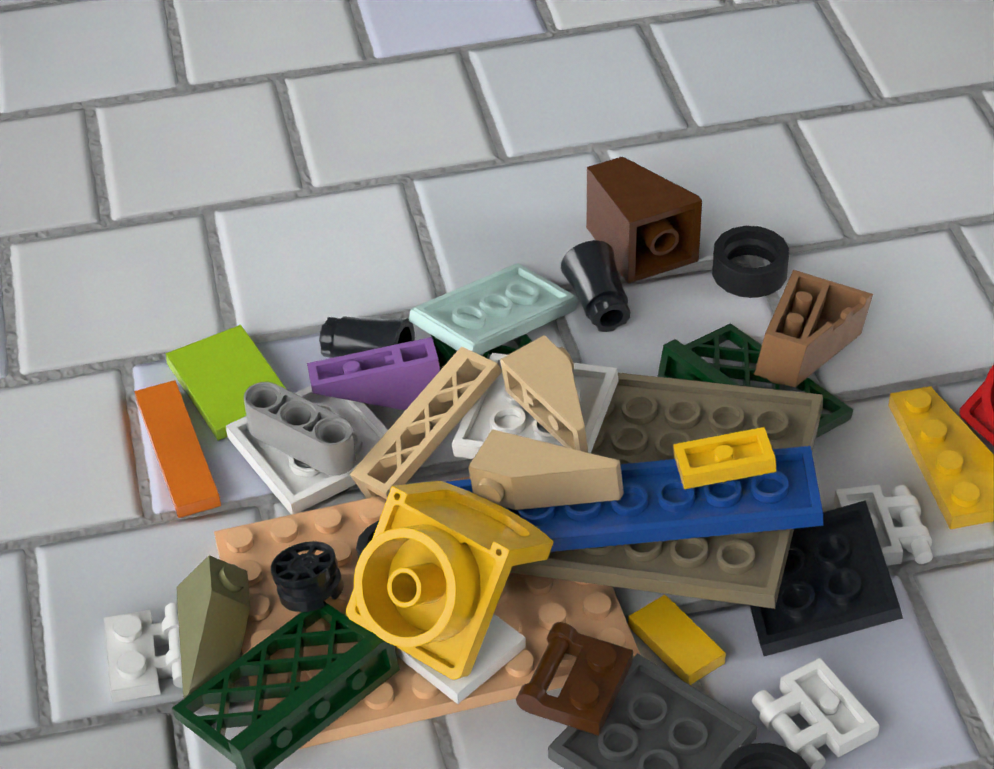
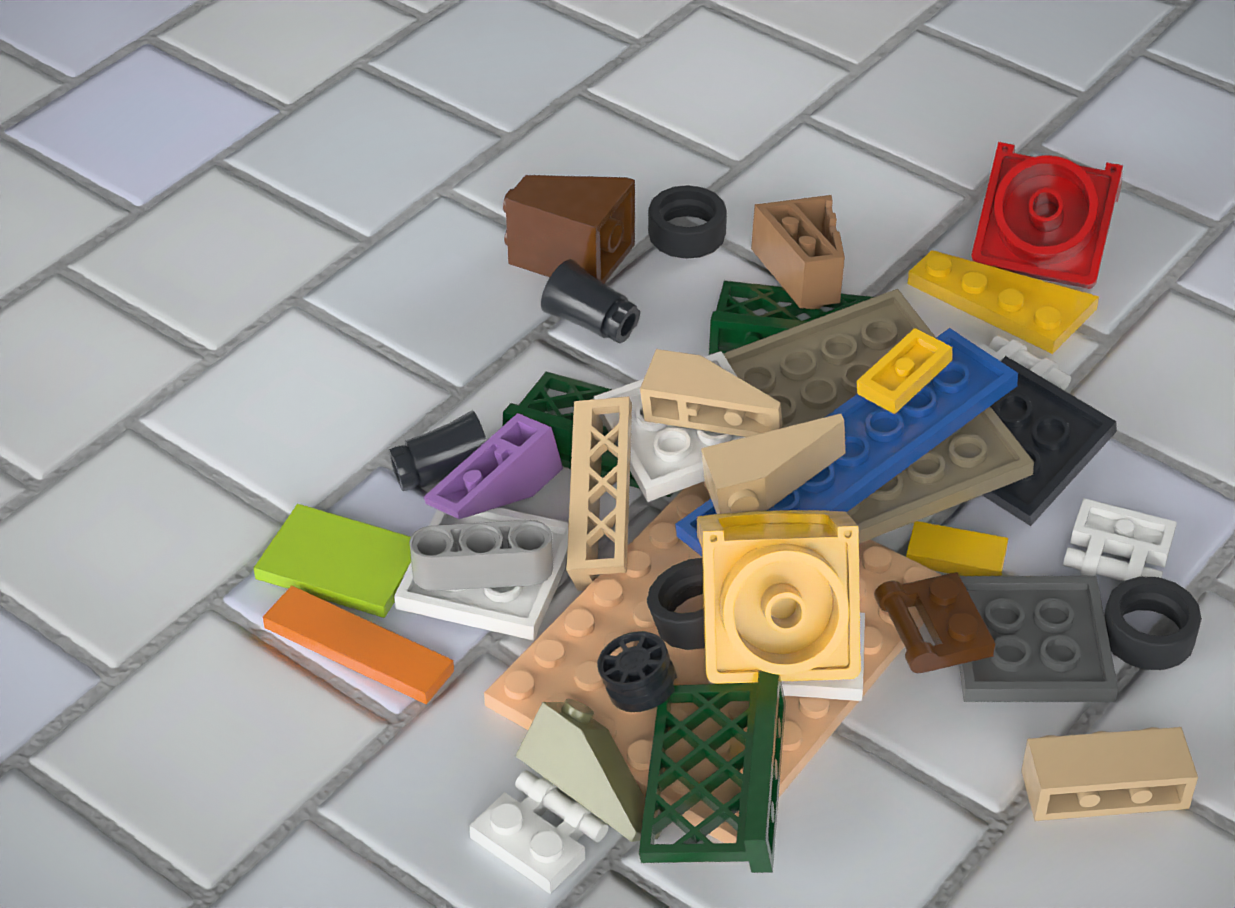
camera: 40 degrees left, 0 degrees up
(493, 309) = (526, 368): light aqua tile -> none

